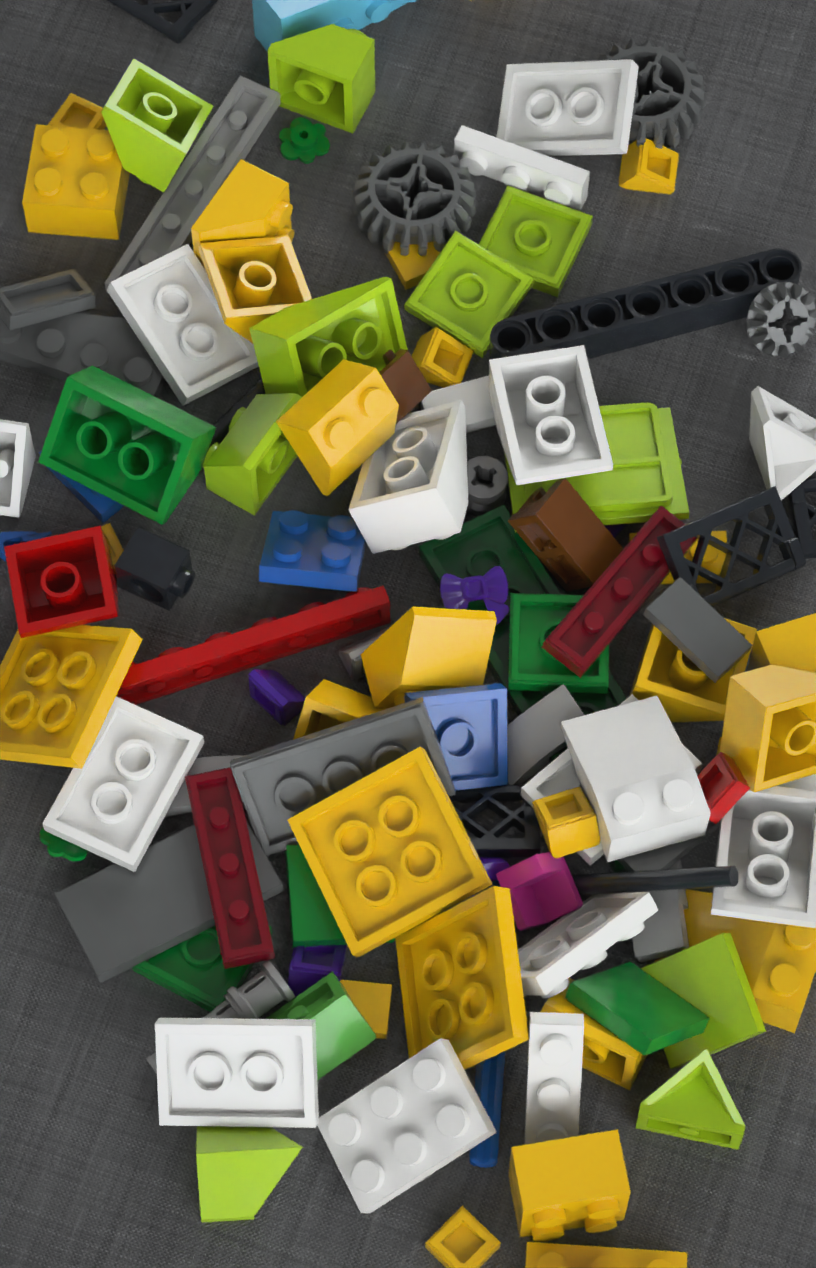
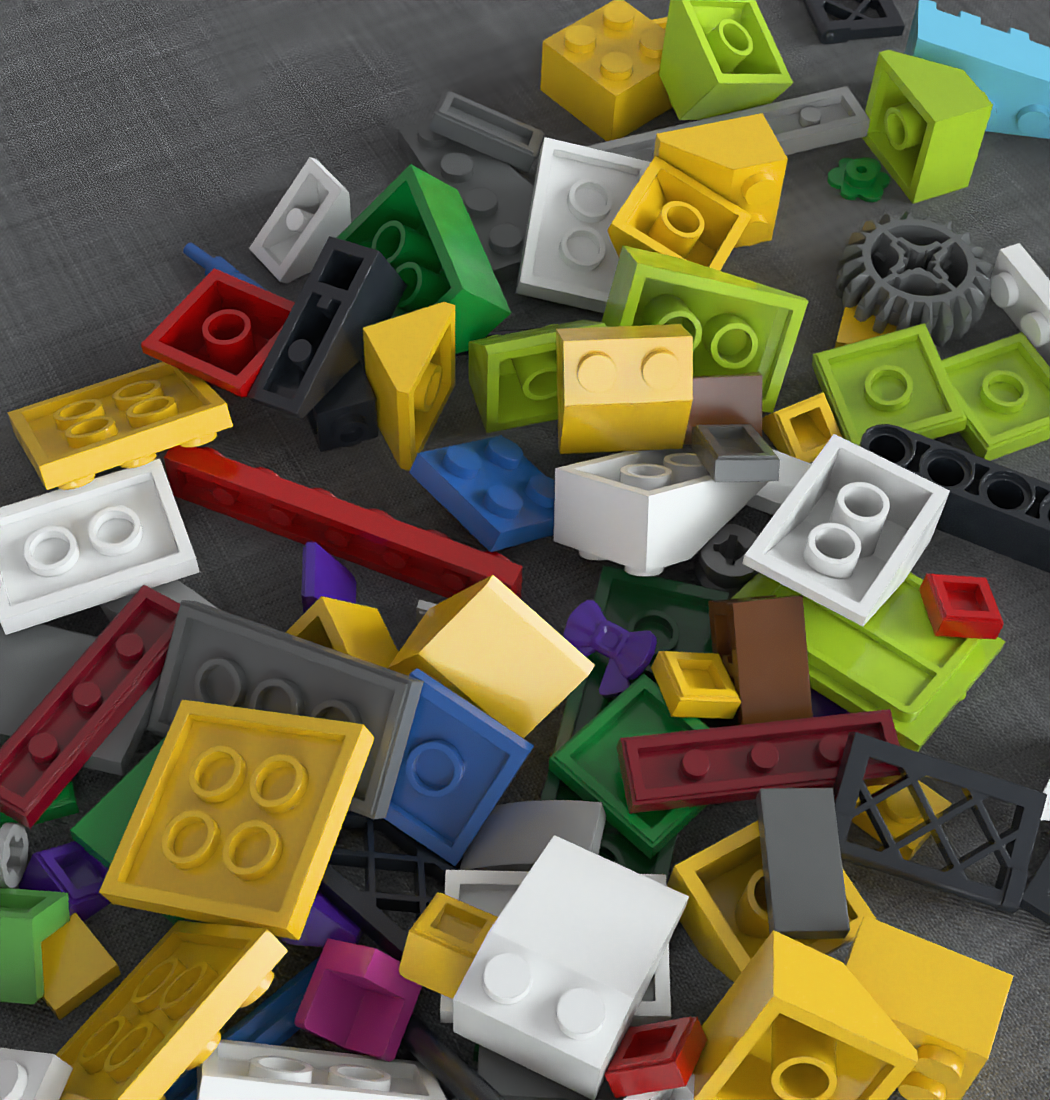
camera: 40 degrees right, 10 degrees down
(127, 533) = (324, 330): none -> black slope
(197, 523) = (411, 375): none -> yellow slope
(438, 415) = (734, 453): none -> dark grey tile
(545, 576) = (695, 685): none -> yellow tile
(634, 407) = (961, 606): none -> red tile

